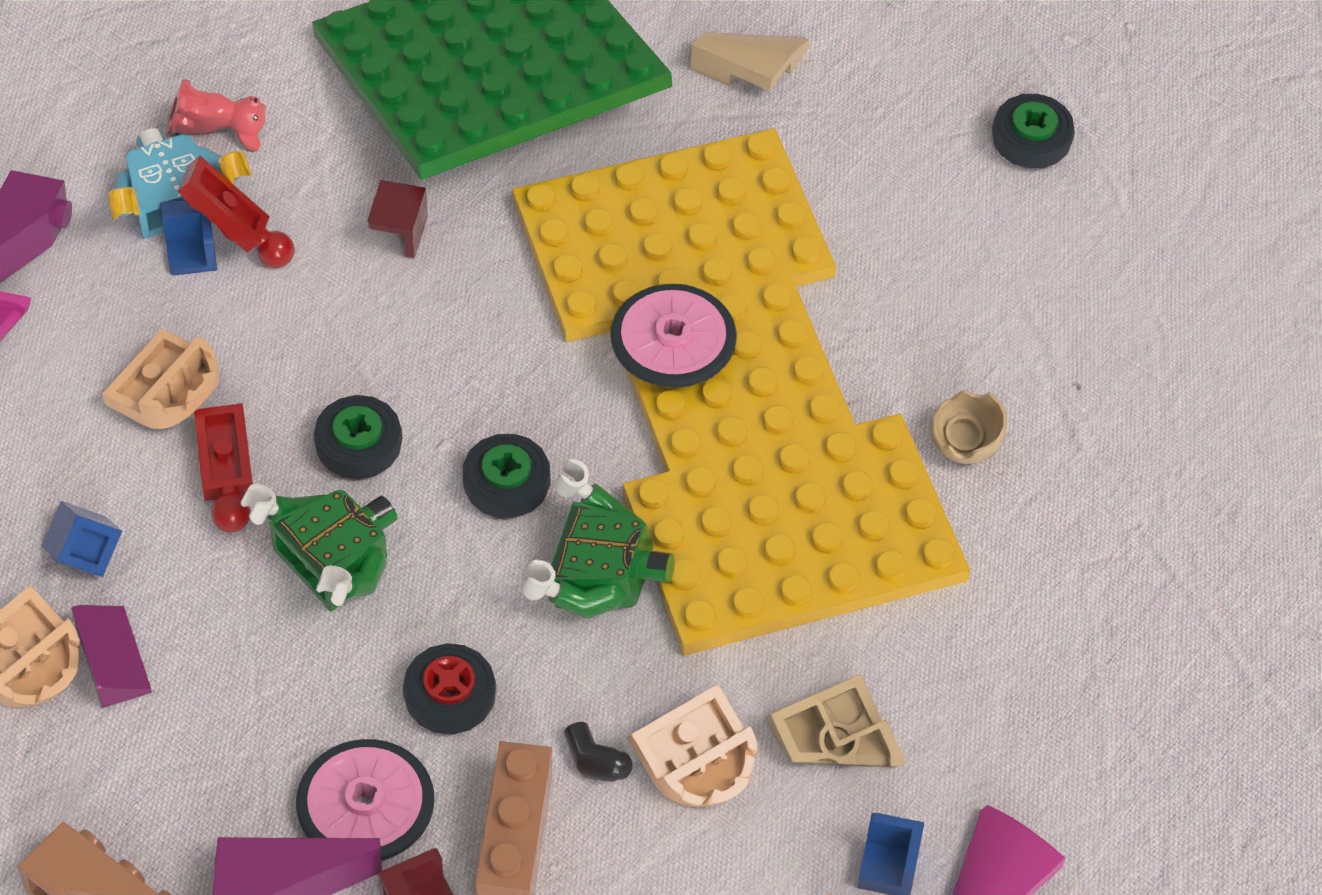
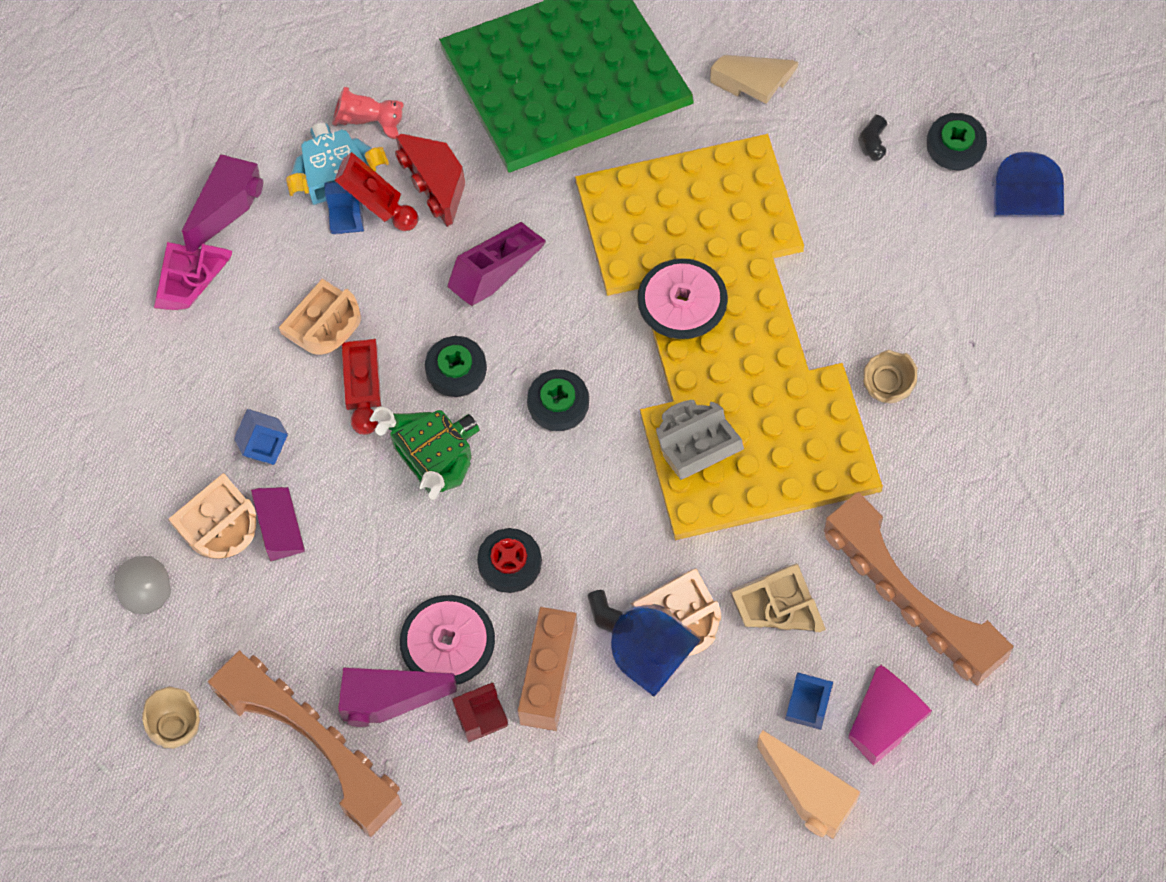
camera: 10 degrees right, 10 degrees up
(313, 186) = (434, 172): none -> red slope
(401, 211) = (493, 194): dark red panel -> none
(402, 301) = (493, 262): none -> magenta slope
(600, 554) = (619, 466): green torso -> none
(660, 789) = (651, 645): none -> clear blue slope
(706, 511) = (696, 437): none -> light grey slope
(916, 133) = (870, 140): none -> black arm
(1109, 771) = (970, 646): none -> nougat arch
(1135, 185) = (1028, 187): none -> clear blue slope

